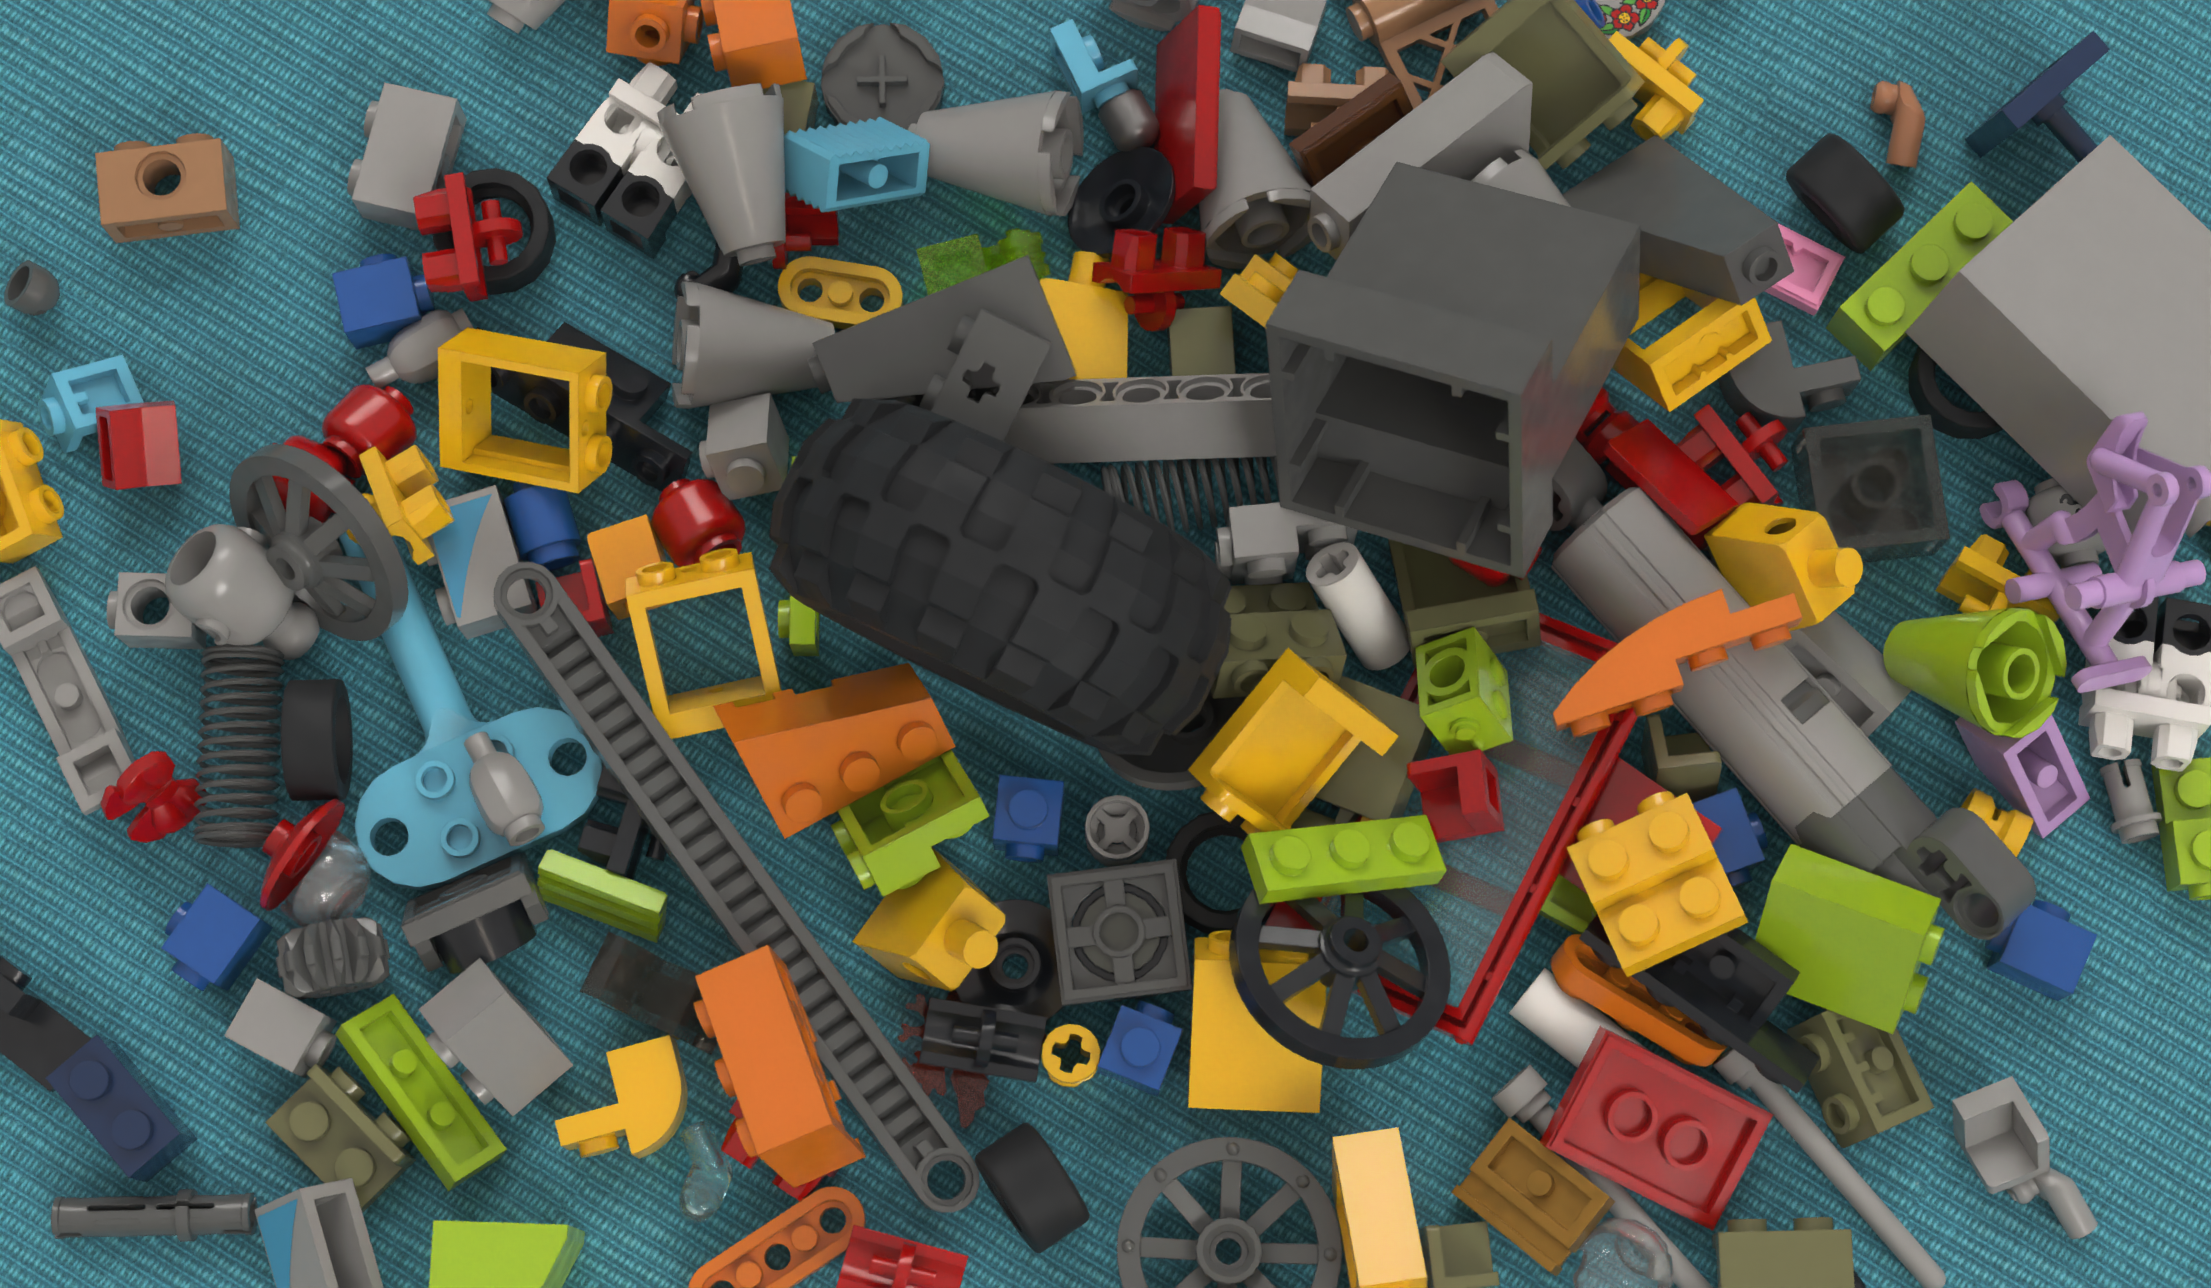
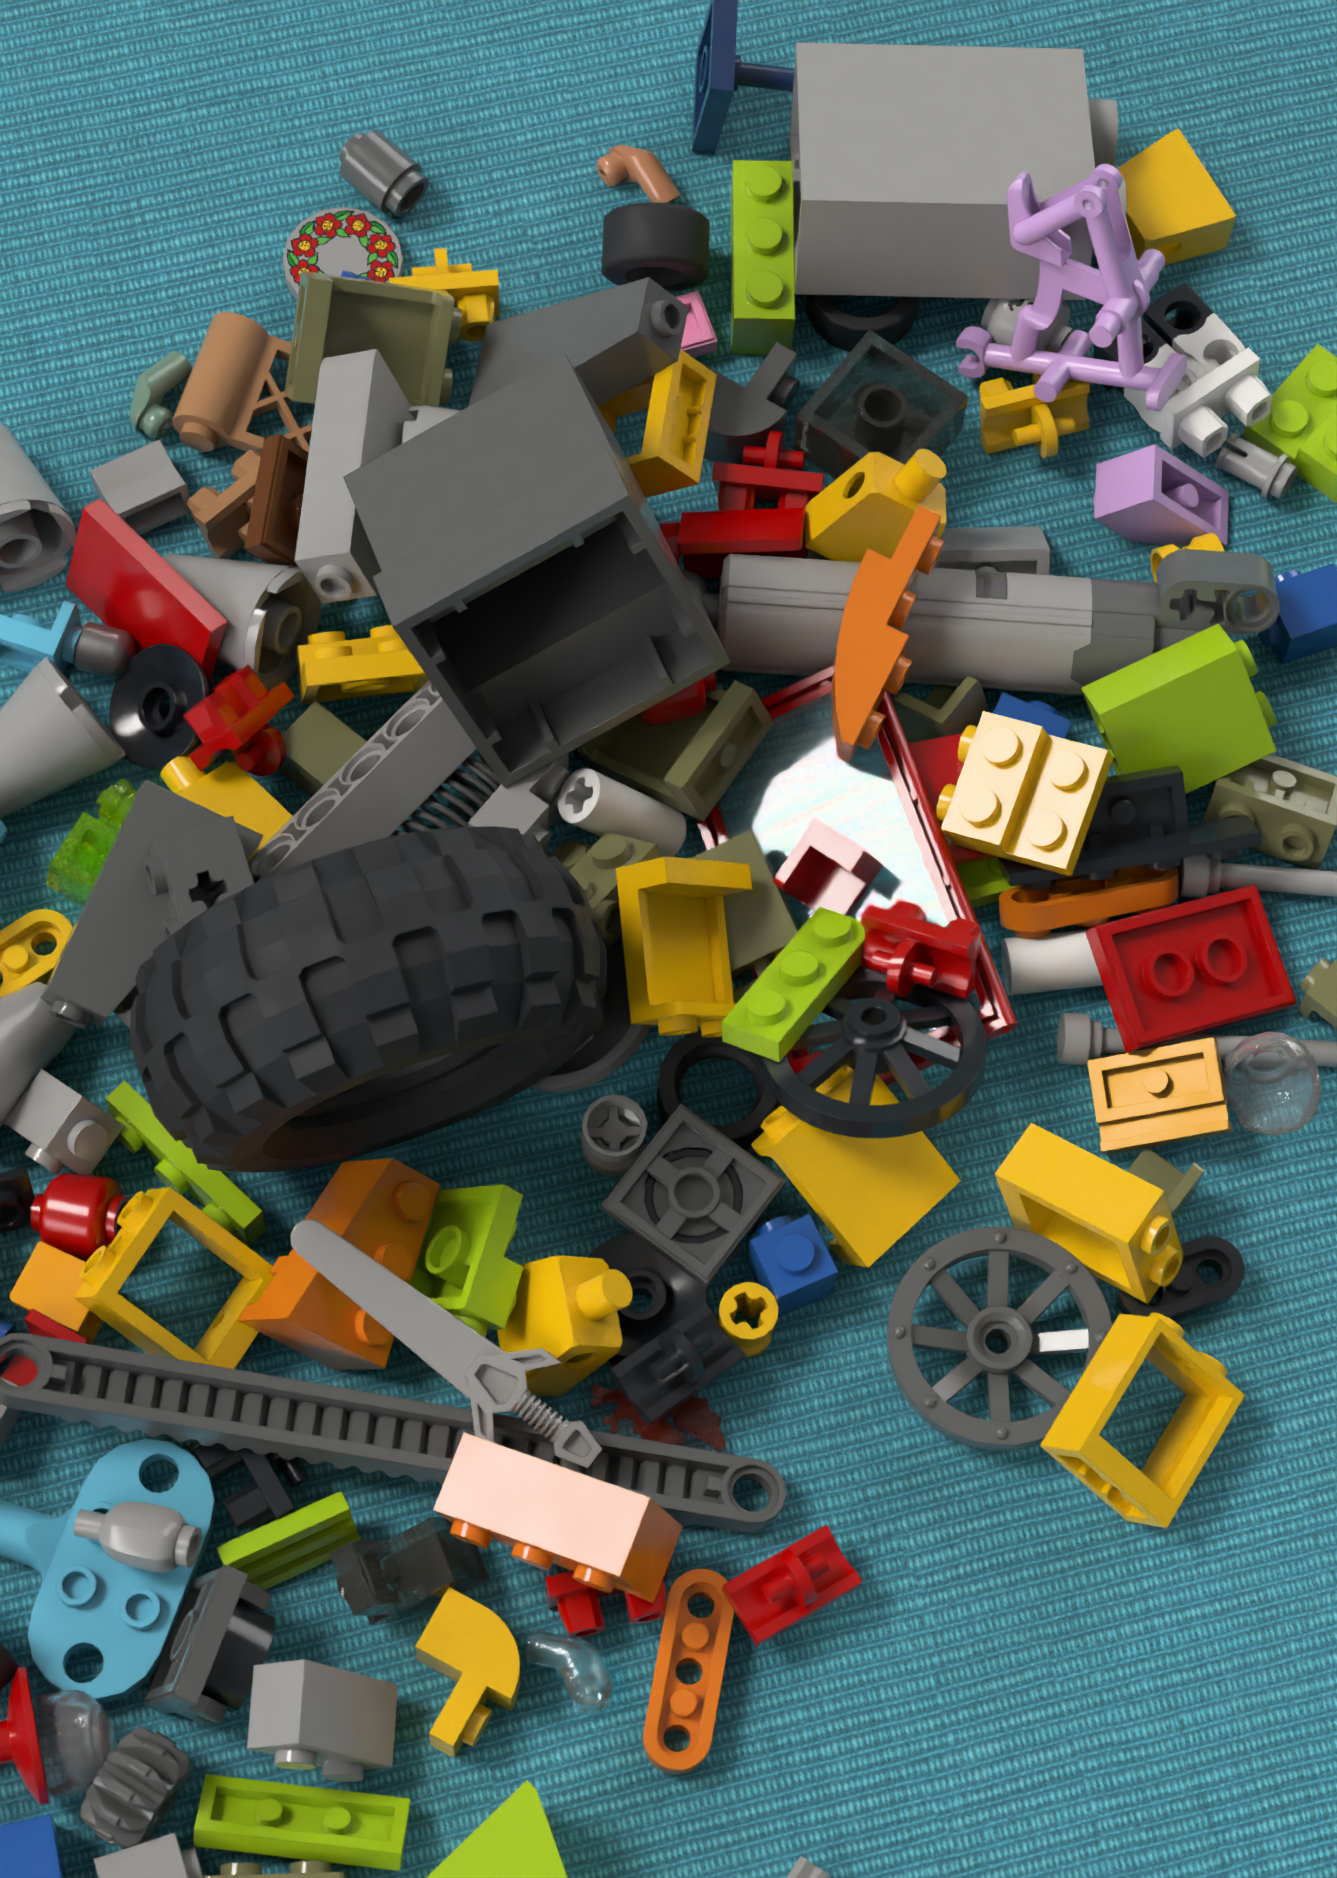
camera: 50 degrees left, 10 degrees down
(833, 898) = (458, 1353): none -> light grey sword
(1028, 818) = (548, 1180): blue brick -> none
(1032, 1187) = (819, 1433): black tyre -> none
(1445, 922) = (918, 951): none -> red hips
(1463, 693) = (760, 795): lime head -> none
(1982, 666) = (1074, 459): lime cone -> none

